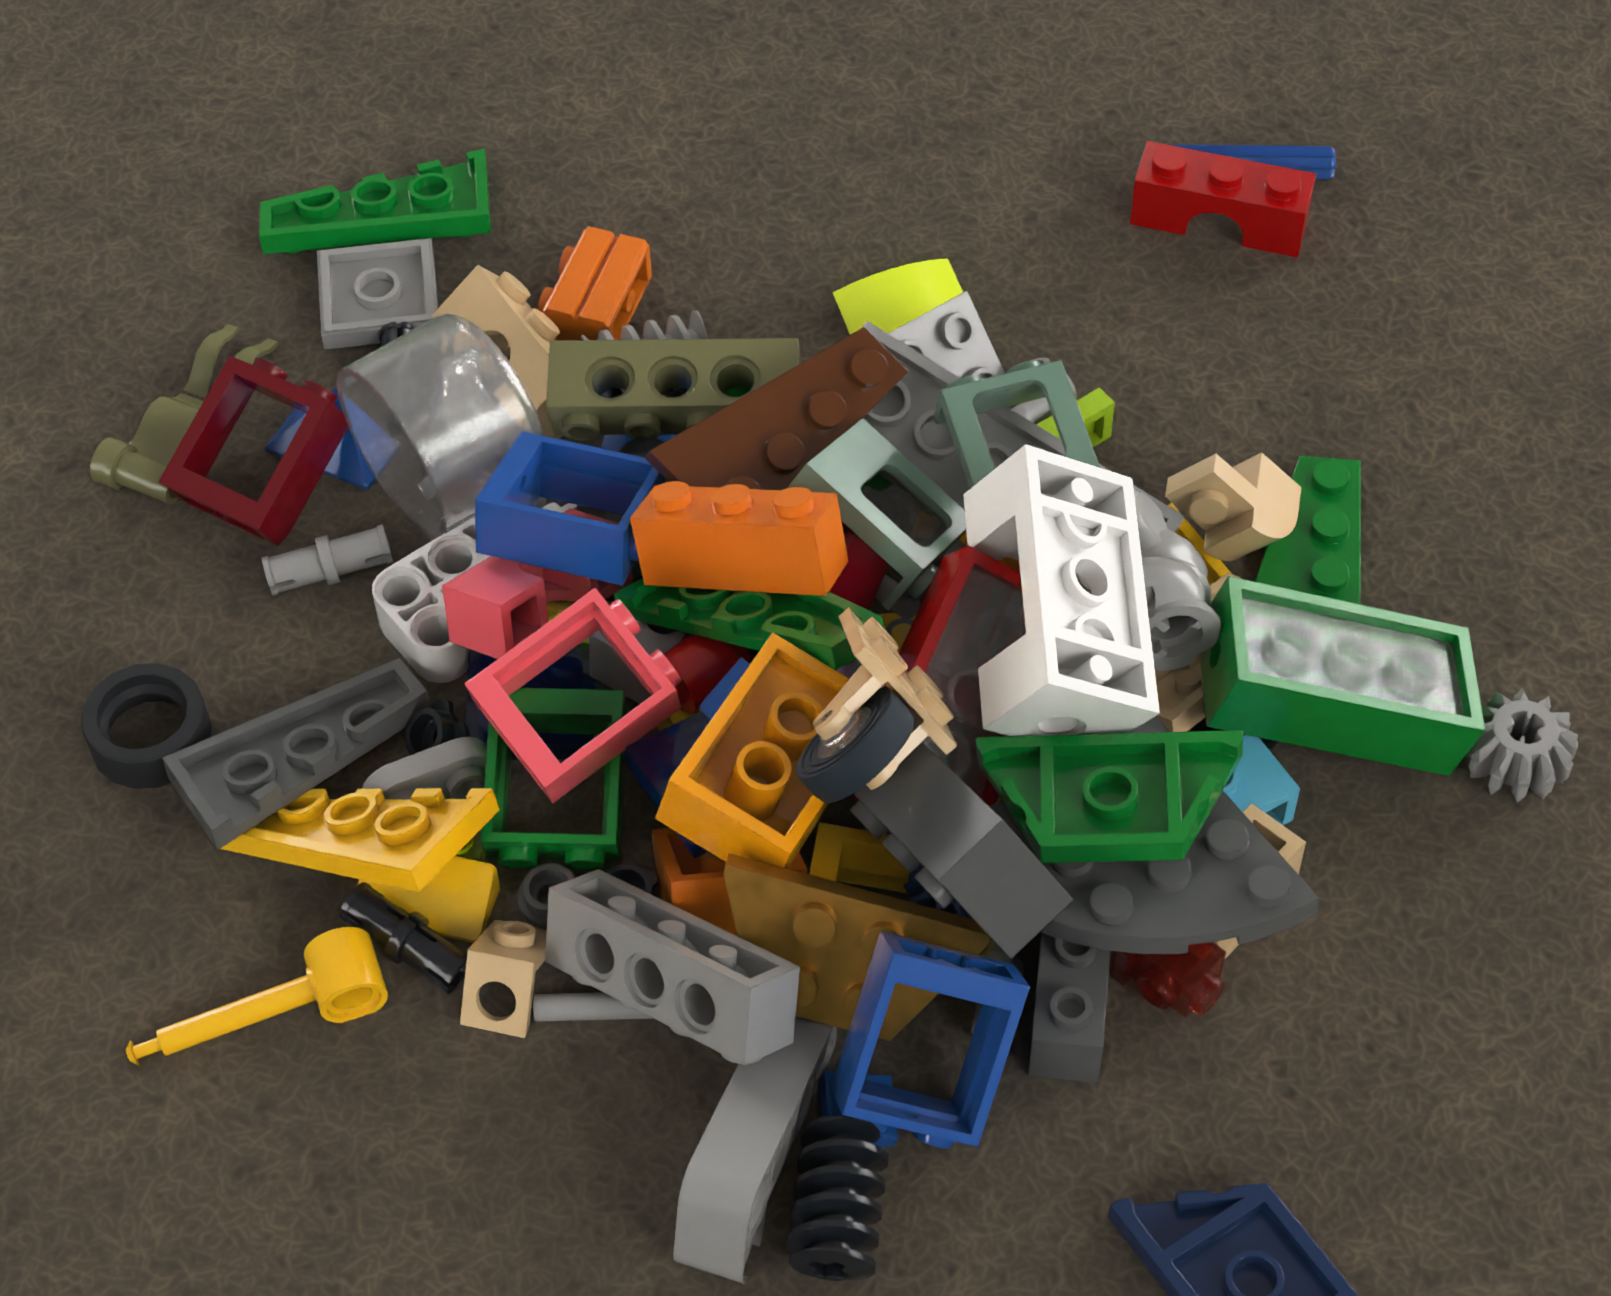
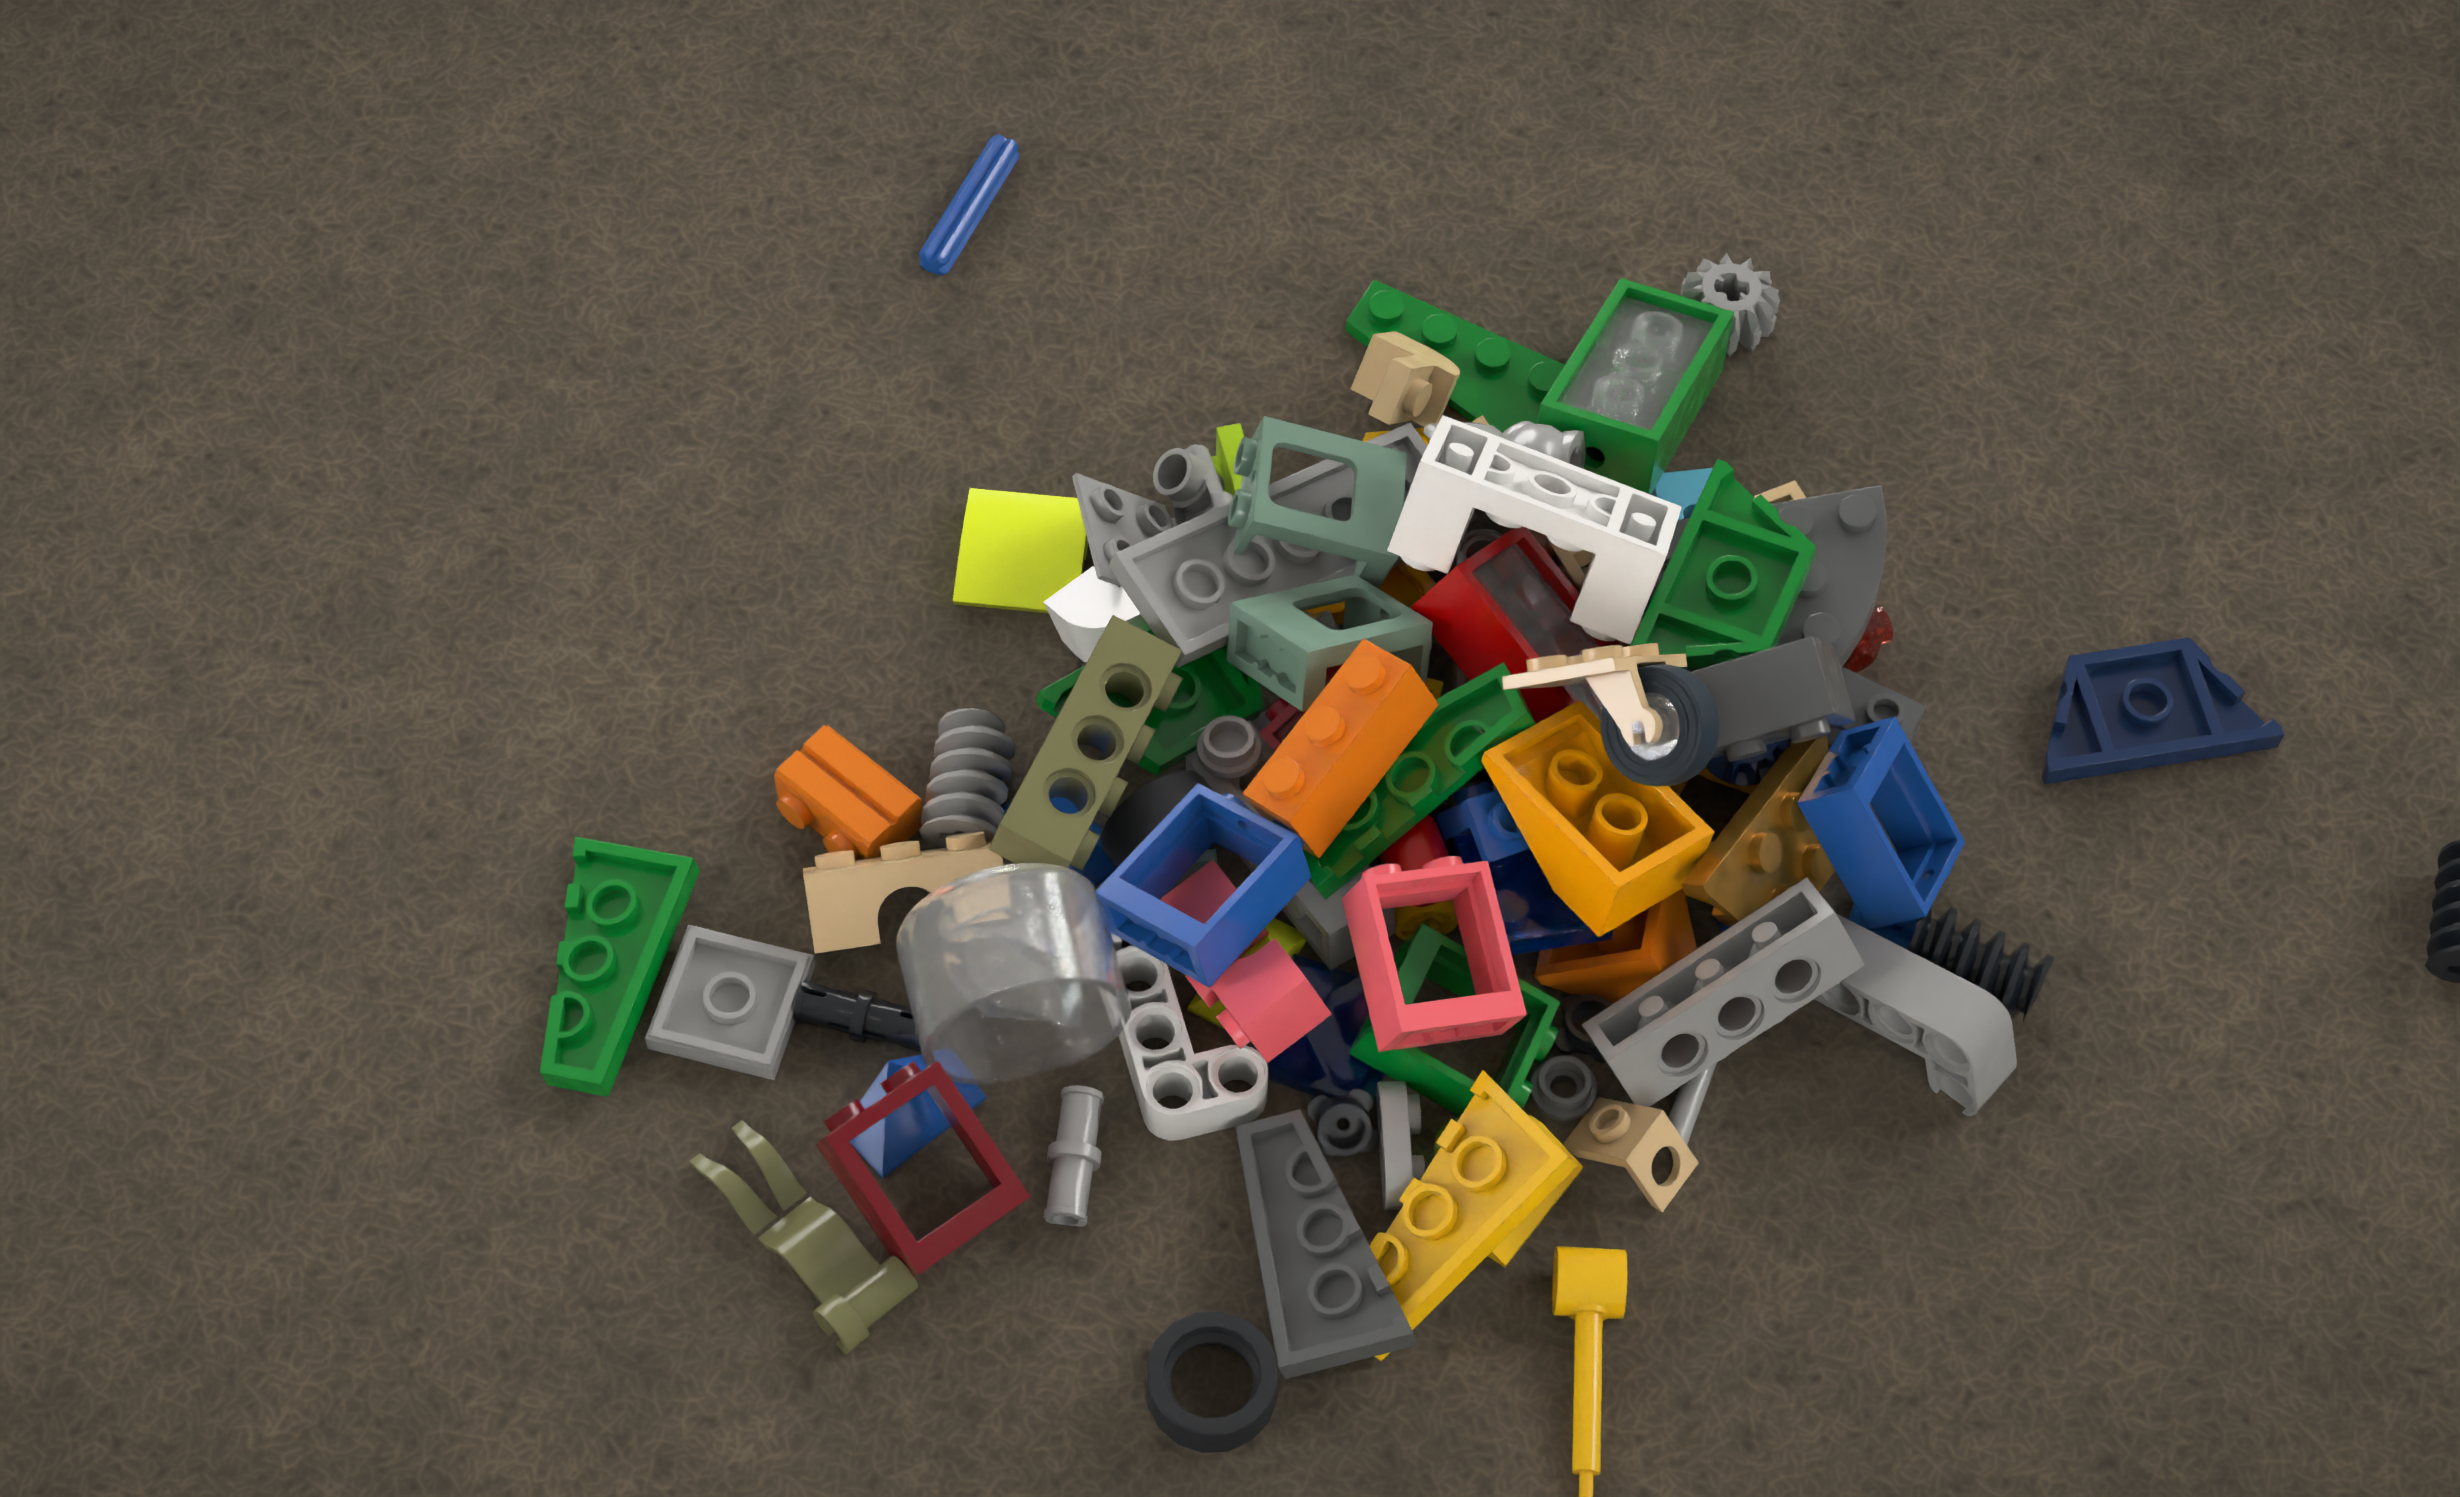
camera: 70 degrees left, 5 degrees up
(405, 936) = (1566, 1219): black pin -> none
(785, 422) = (1221, 688): reddish brown wing -> none
(1262, 198) = (991, 265): red arch -> none

